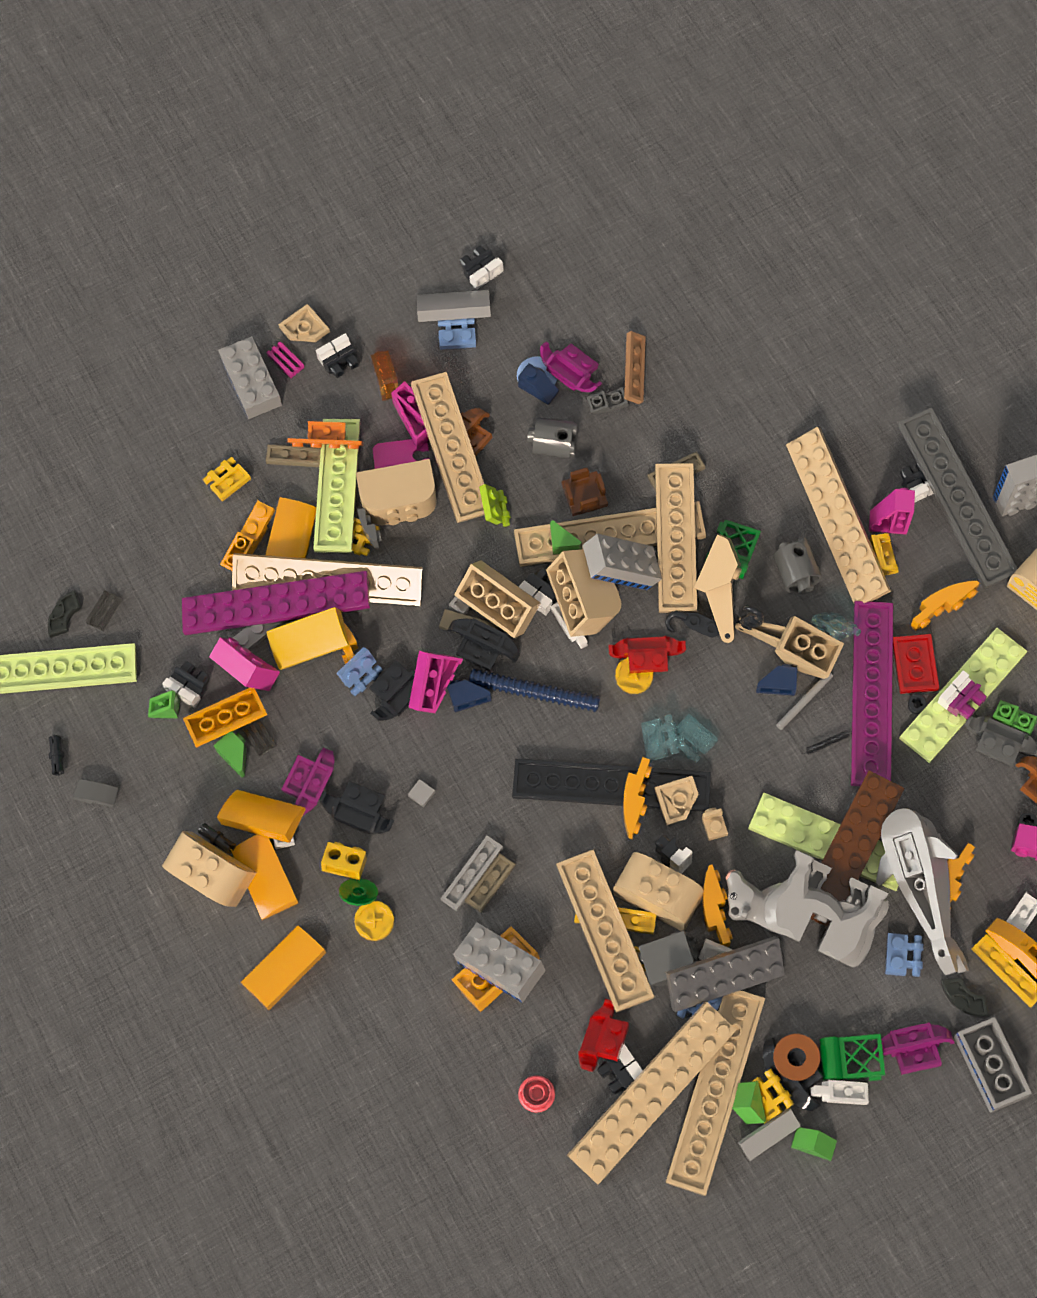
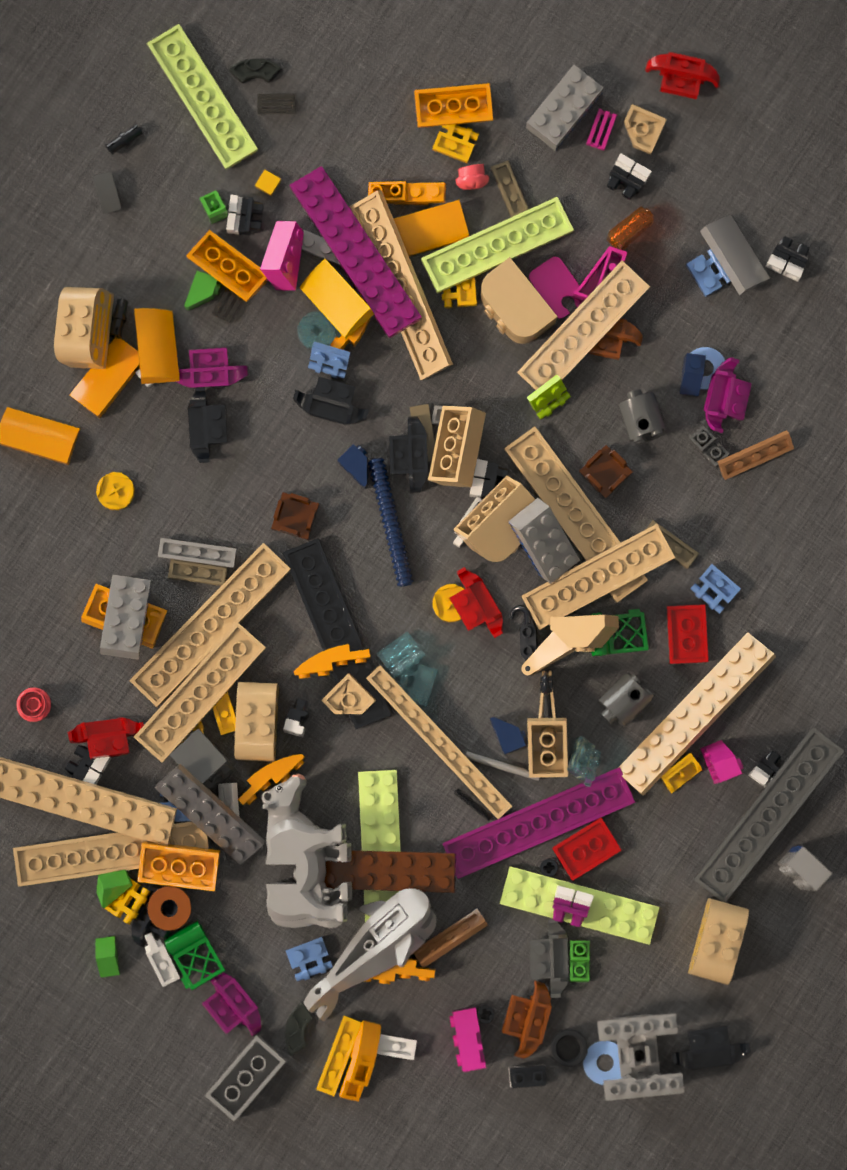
camera: 60 degrees right, 15 degrees up
(169, 651) = (268, 182): none -> yellow tile
(194, 464) = (453, 105): none -> light orange slope
(266, 477) = (472, 177): none -> coral piece
(276, 275) = (682, 74): none -> red plate
(322, 682) = (307, 325): none -> clear light blue plate
(326, 434) = (539, 210): orange bracket -> none
(341, 865) = (148, 438): yellow brick -> none
(358, 892) = (137, 462): green dish -> none
(369, 529) = (463, 301): dark grey slope -> none
(421, 793) = (248, 472): light grey tile -> none
(431, 680) = (351, 427): dark pink wedge -> none
(483, 769) = (295, 515): none -> reddish brown panel
(546, 894) = (210, 624): none -> tan plate
(562, 539) = (542, 475): bright green slope -> none
(714, 823) = (346, 740): tan bracket -> none
(731, 447) = (718, 583): none -> medium blue plate
(756, 741) = (439, 742): none -> tan plate
(760, 1029) = (178, 866): none -> light orange slope
(763, 493) = (687, 634): none -> red plate
(769, 1134) = (95, 915): light grey tile -> none
(942, 812) = (450, 938): none -> medium nougat plate
(945, 599) = (666, 851): light orange slope -> none

